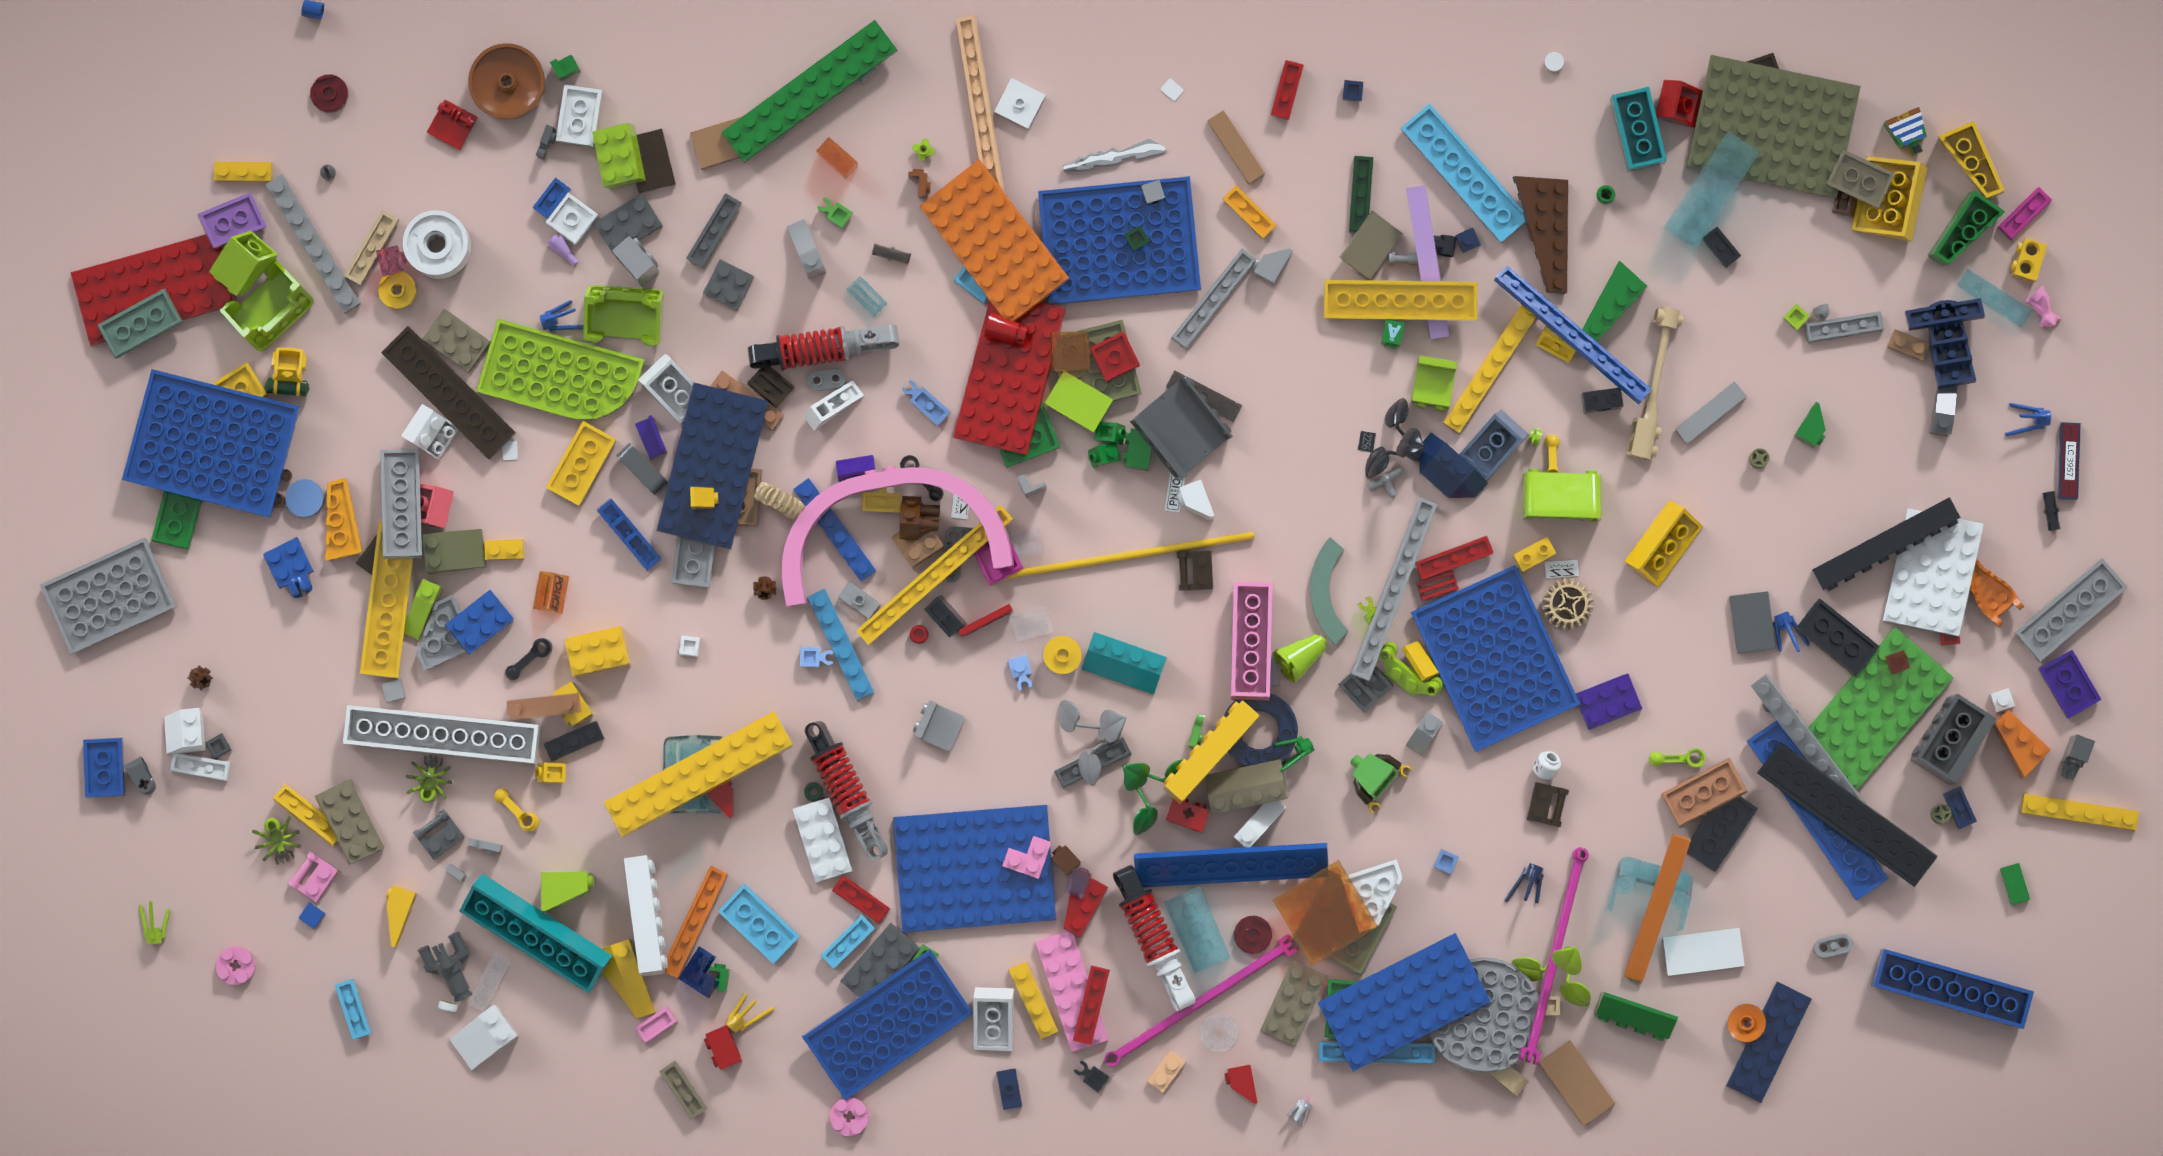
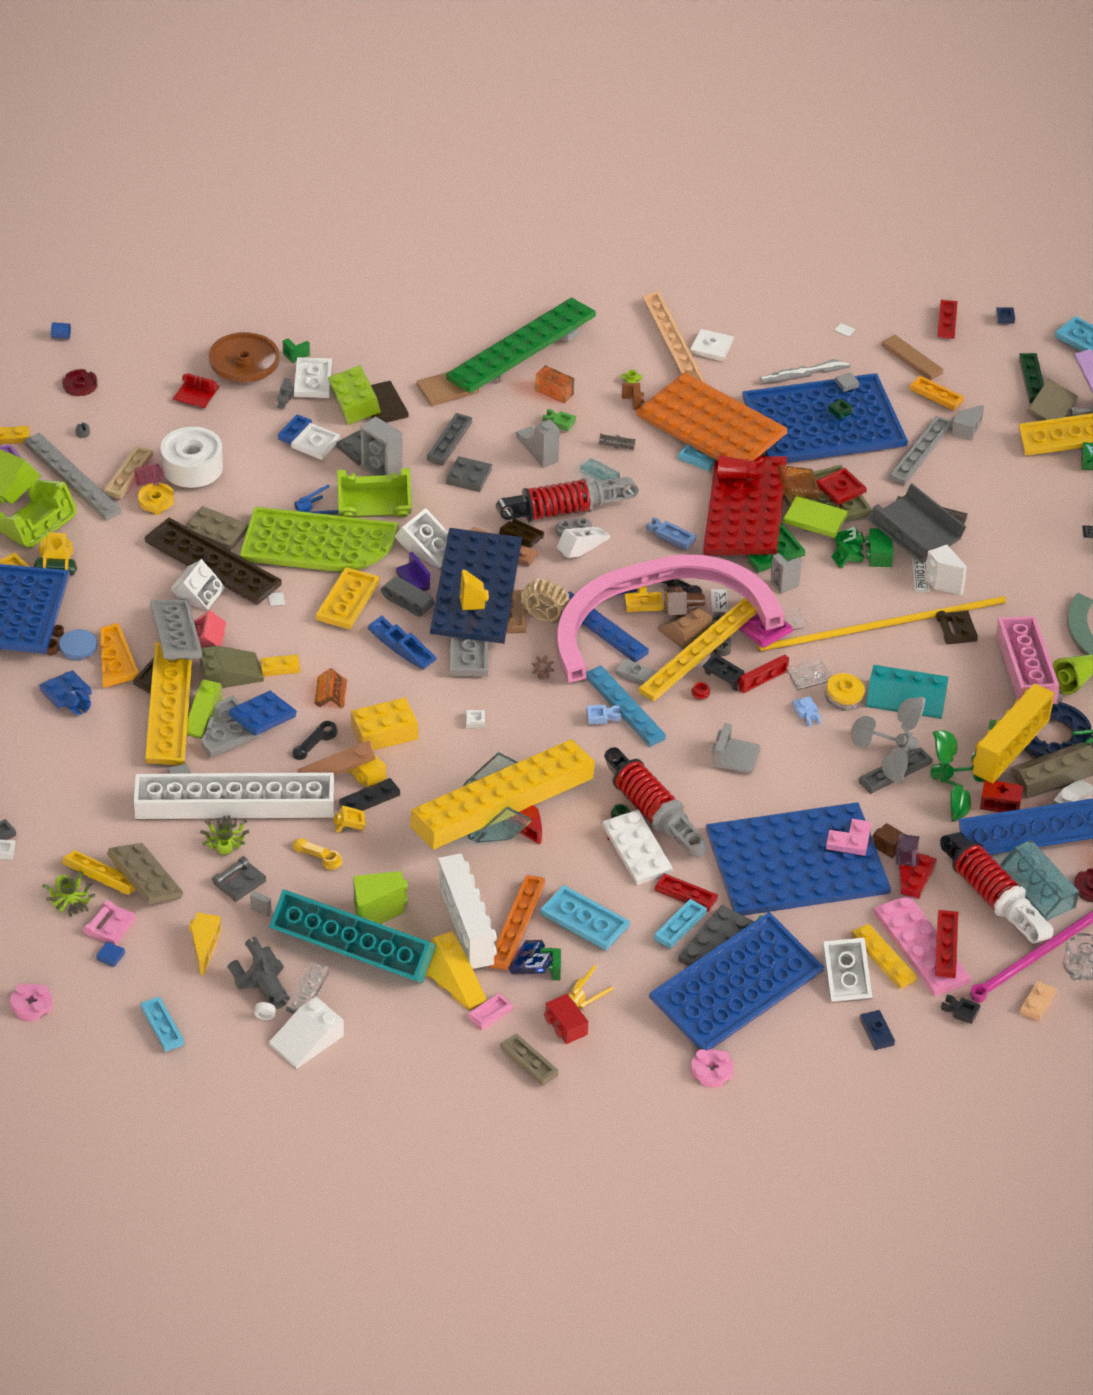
camera: 15 degrees left, 40 degrees down
(490, 848) = (292, 879): light grey plate -> none
(560, 247) = (305, 458): lavender cone -> none

